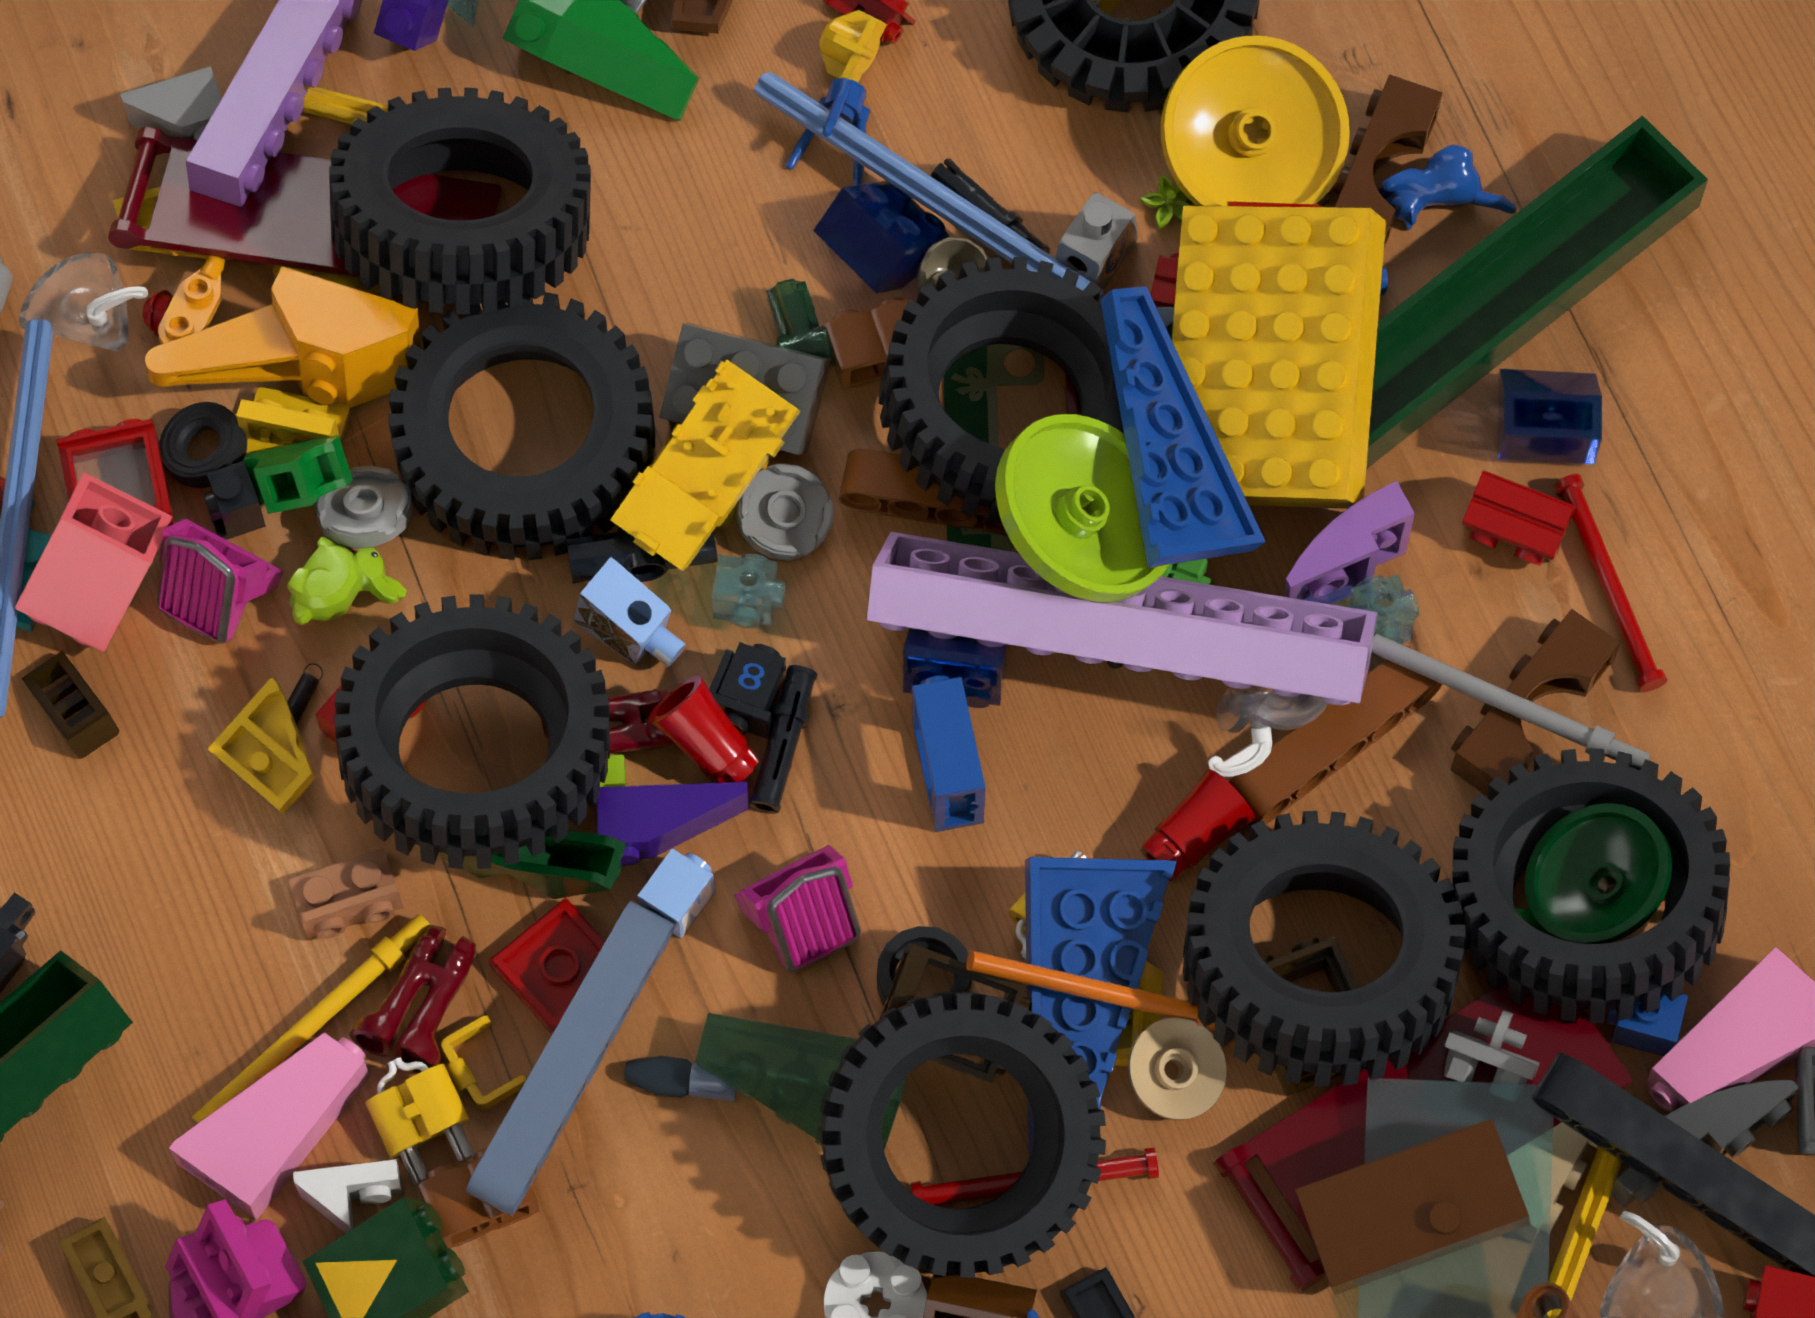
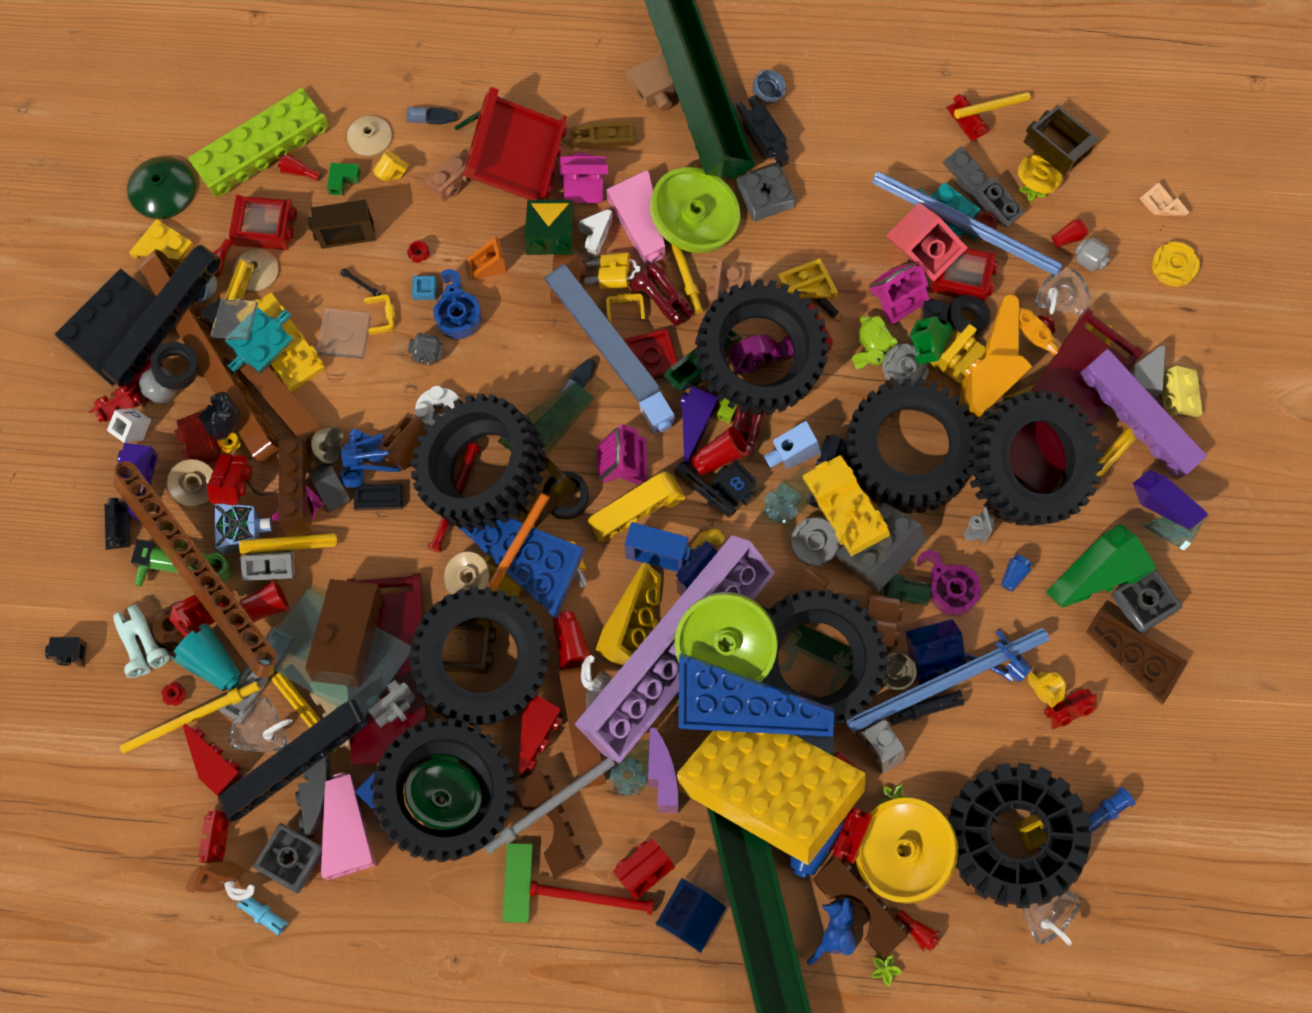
camera: 120 degrees right, 5 degrees up
(86, 729) = (856, 220): dark brown slope -> none
(98, 943) = (758, 202): none -> dark grey brick
(193, 43) = (1181, 392): none -> light yellow bracket
(215, 1019) = (694, 210): none -> lime dish
(460, 752) = (758, 349): none -> magenta piece
(621, 249) = (979, 527): none -> light grey hinge
(671, 174) = (1016, 572): none -> blue cone
(744, 275) = (947, 576): none -> magenta piece
(875, 698) = (712, 535): none -> yellow arm
(887, 832) = (636, 505): none -> yellow beam
(1129, 740) = (632, 617): none -> yellow wedge
(1368, 64) = (922, 934): none -> red cone
(1398, 799) = (537, 724): none -> red slope
(1456, 101) = (885, 969): none -> lime plant
(1665, 707) = (517, 883): none -> bright green tile

